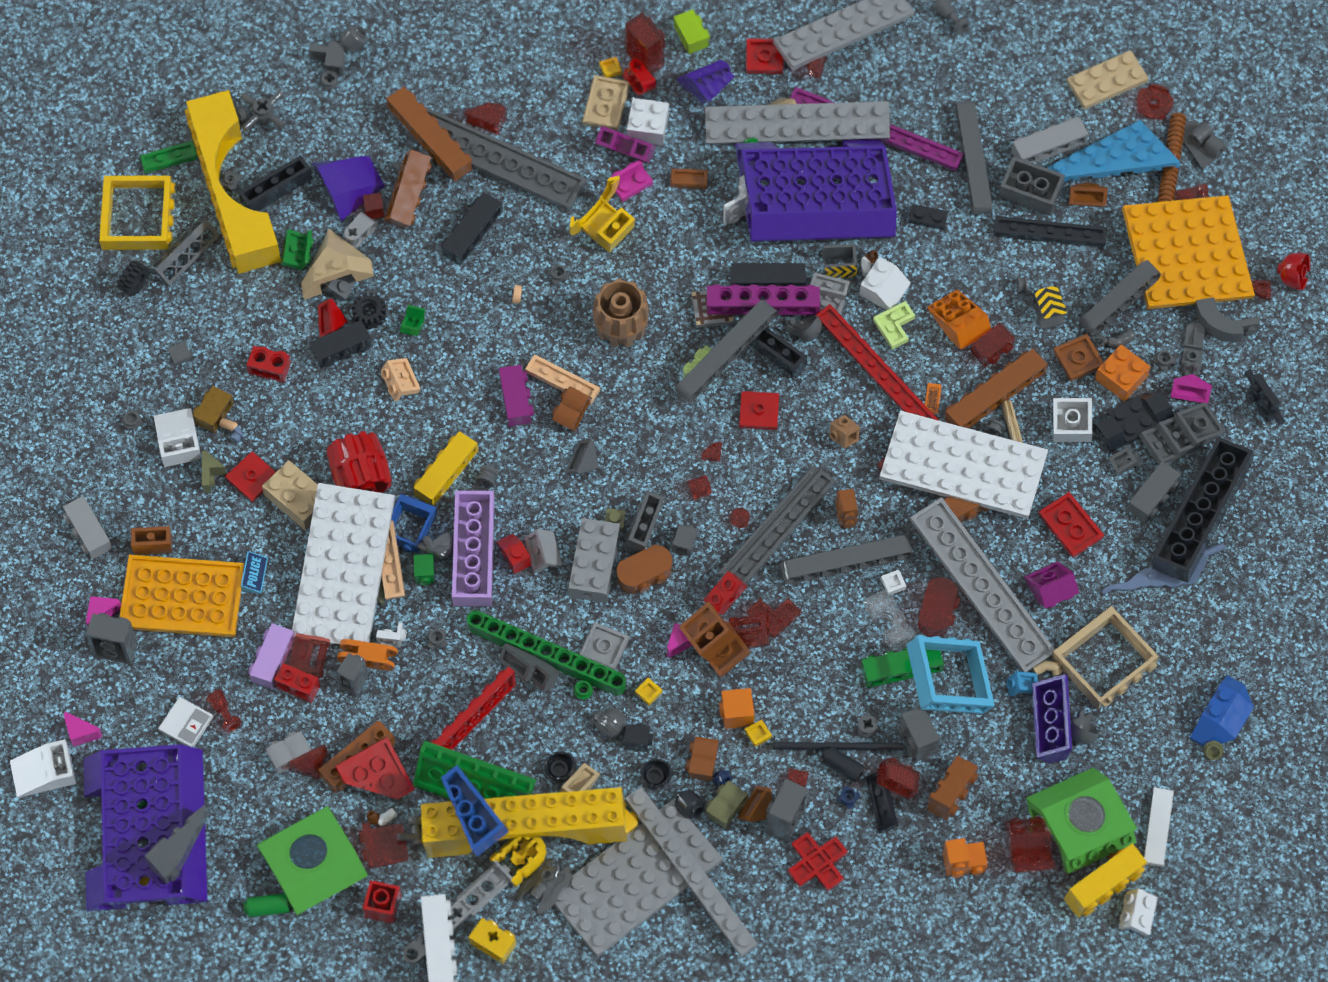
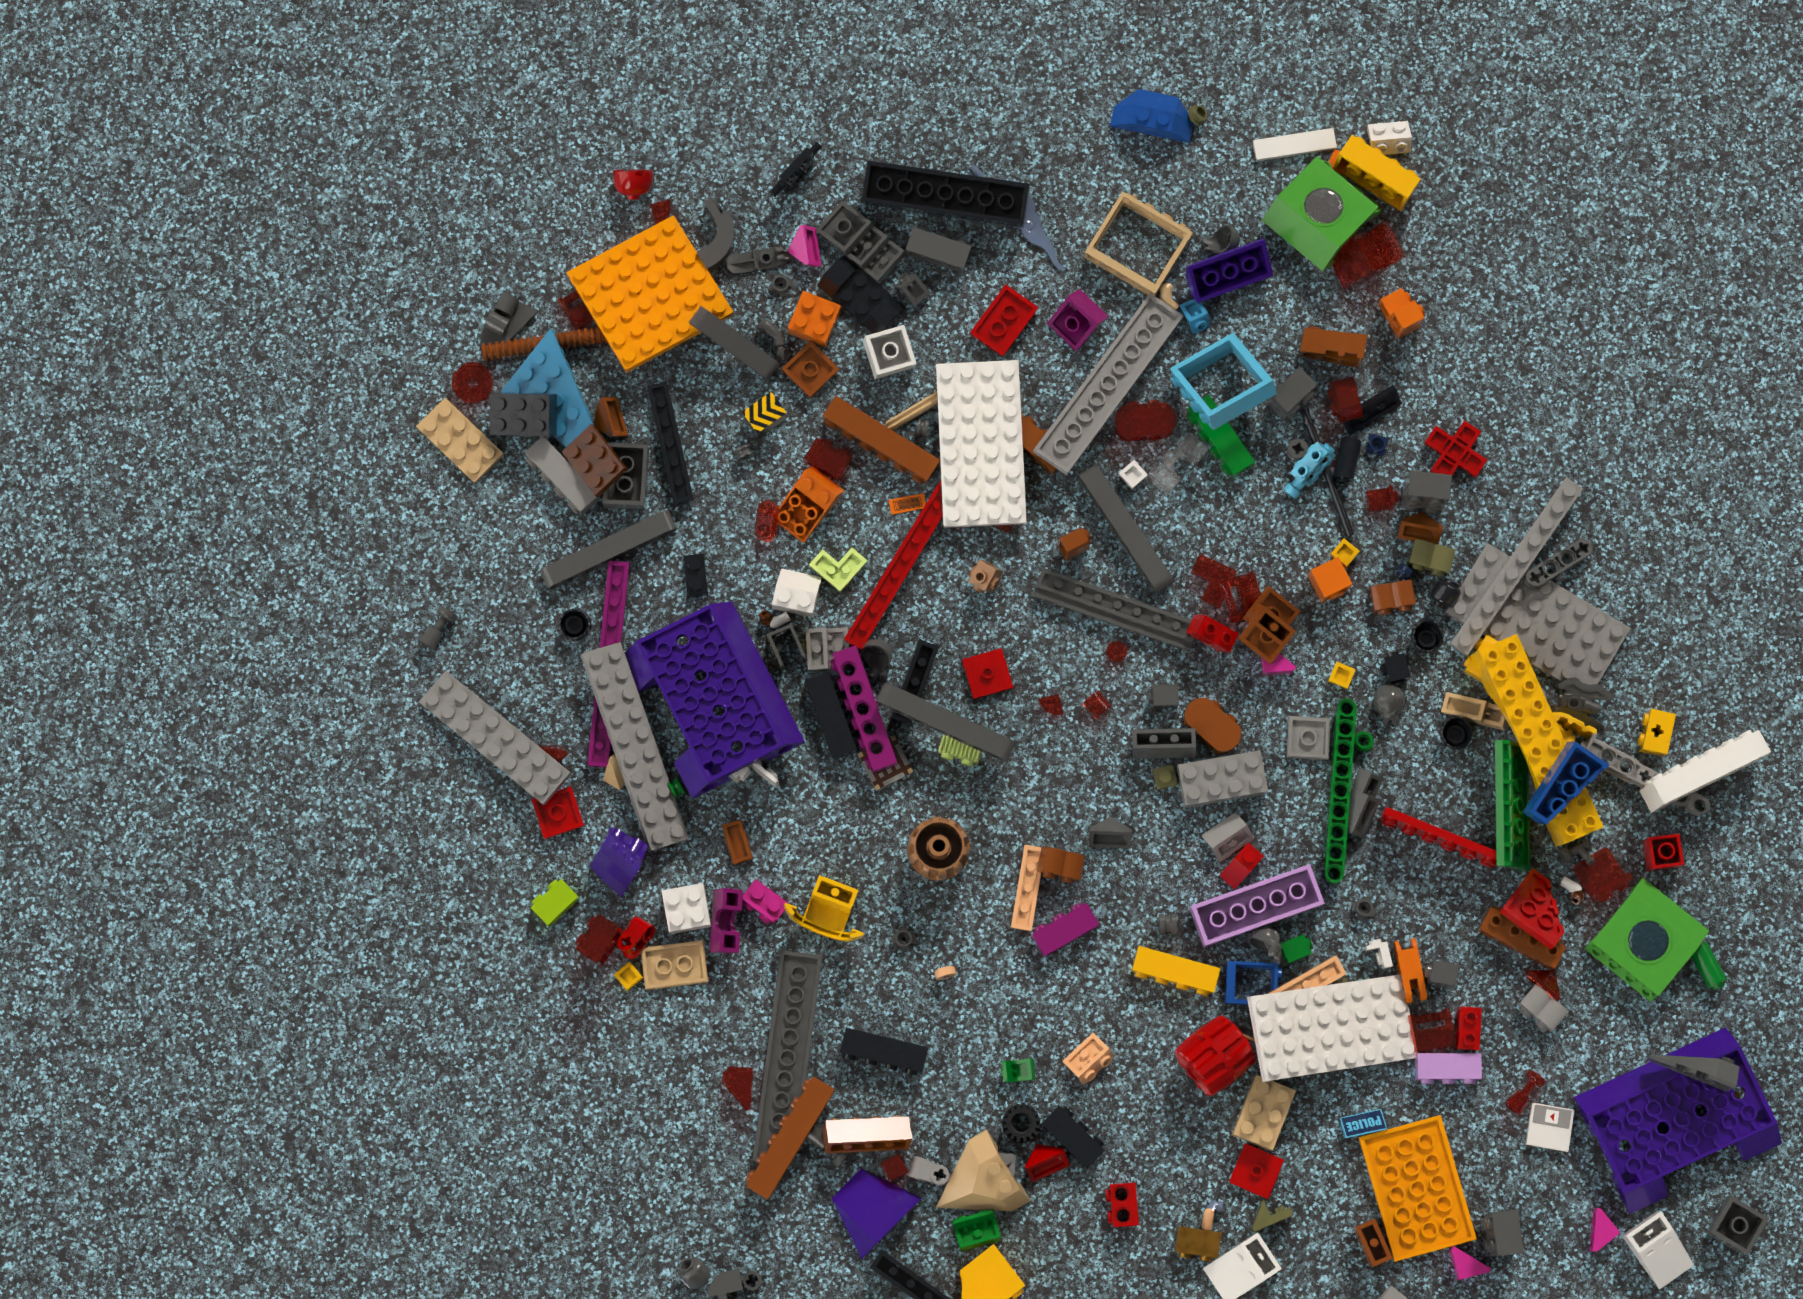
camera: 110 degrees left, 15 degrees up
(33, 840) = (1737, 1225): none -> dark grey brick
(679, 910) = (1558, 564): none -> dark grey beam
(845, 726) = (1309, 463): none -> medium azure brick
(917, 113) = (574, 624): none -> black hair
(955, 282) = (766, 519): none -> clear red plate
(1052, 161) = (594, 460): none -> reddish brown plate
(1112, 123) = (523, 414): none -> black brick

